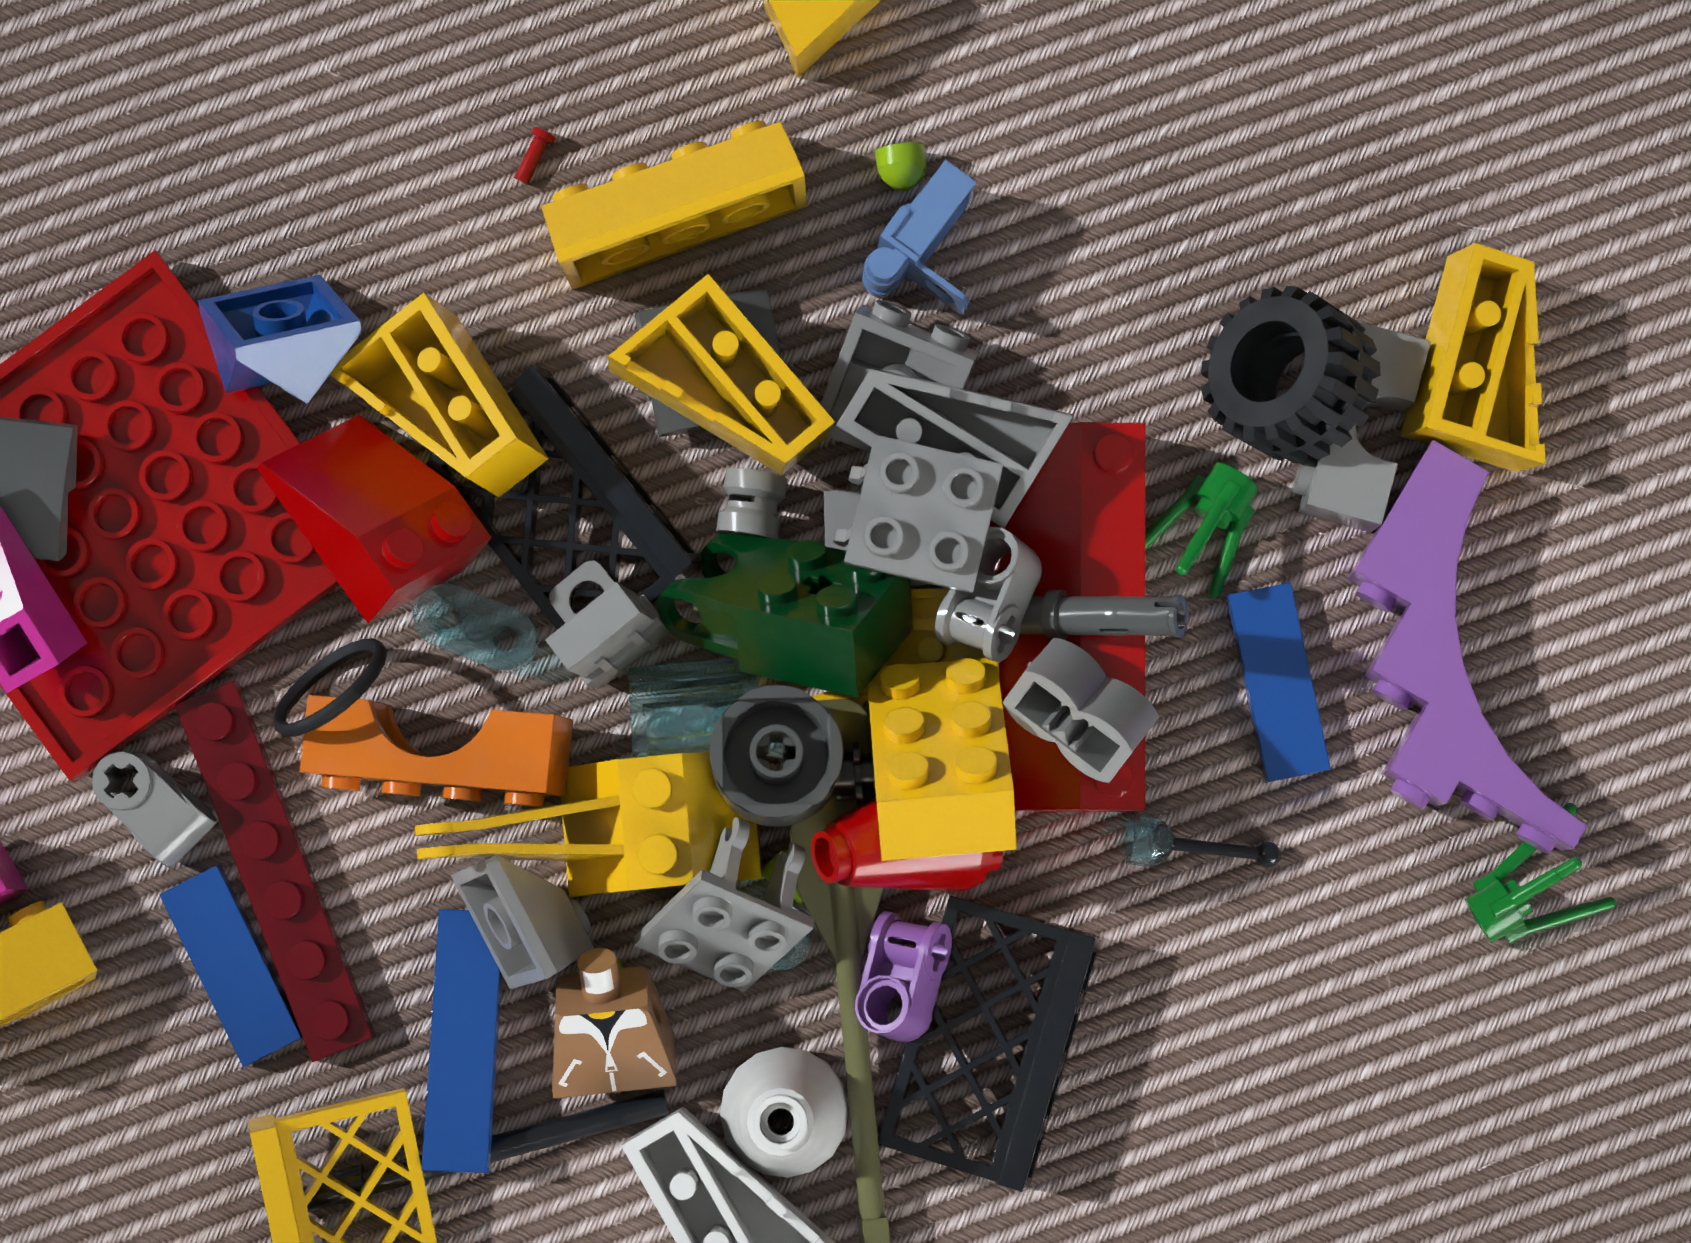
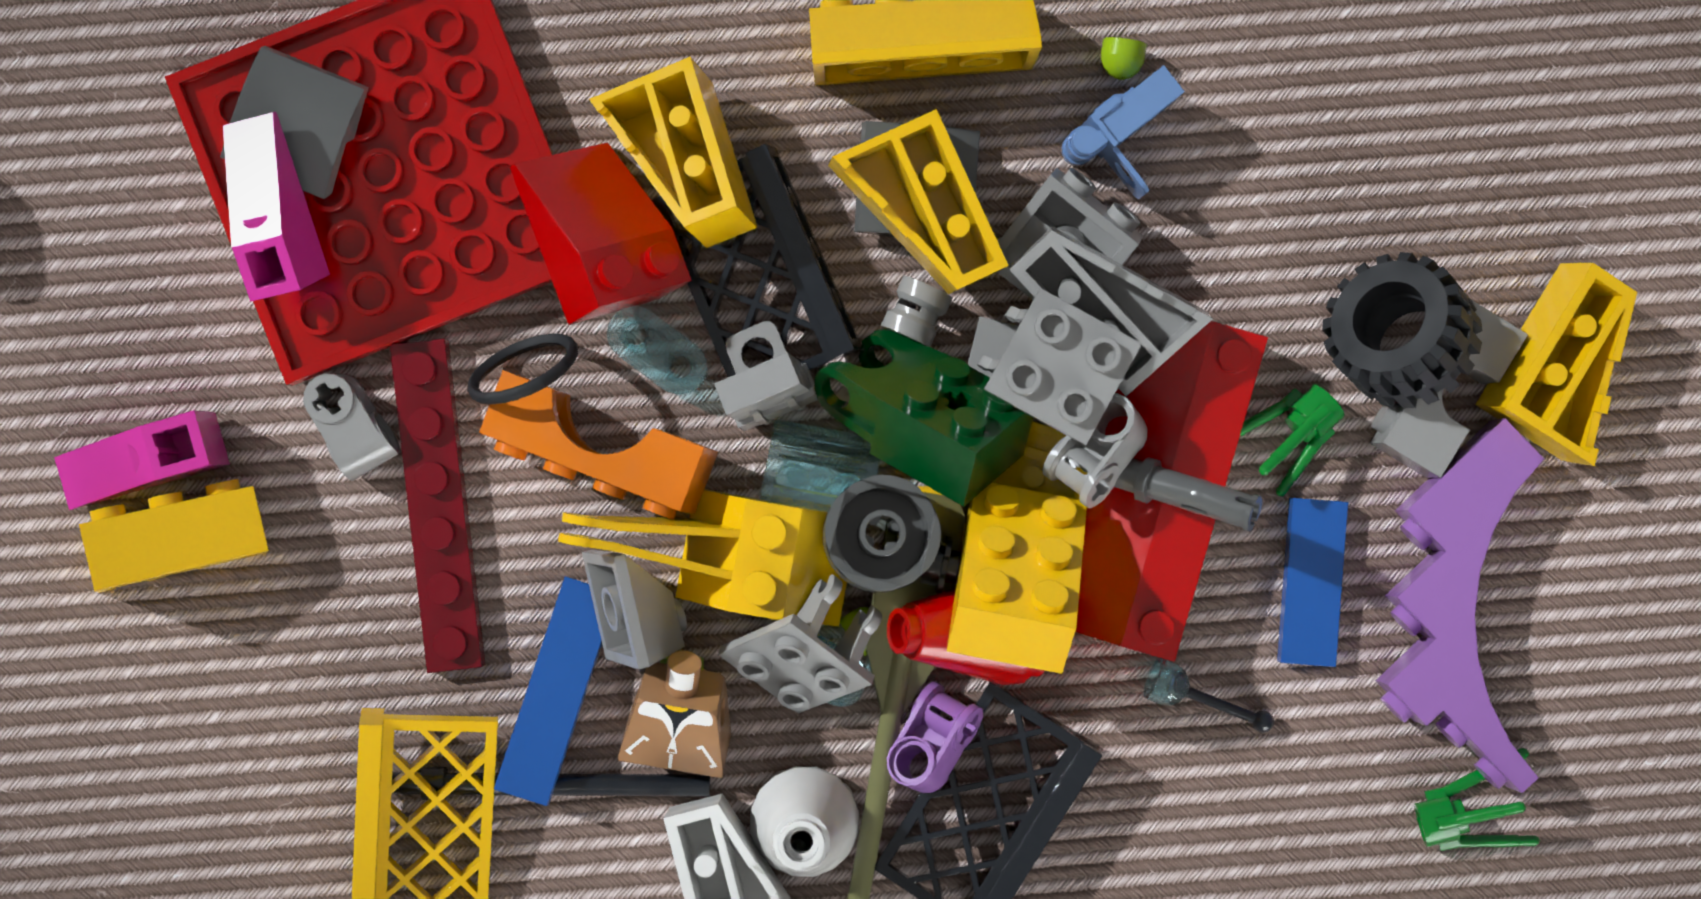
camera: 10 degrees right, 5 degrees up
(231, 965) = (381, 574): blue tile -> none
(279, 335) = (560, 57): blue slope -> none
(1080, 709) = (1152, 574): light grey brick -> none

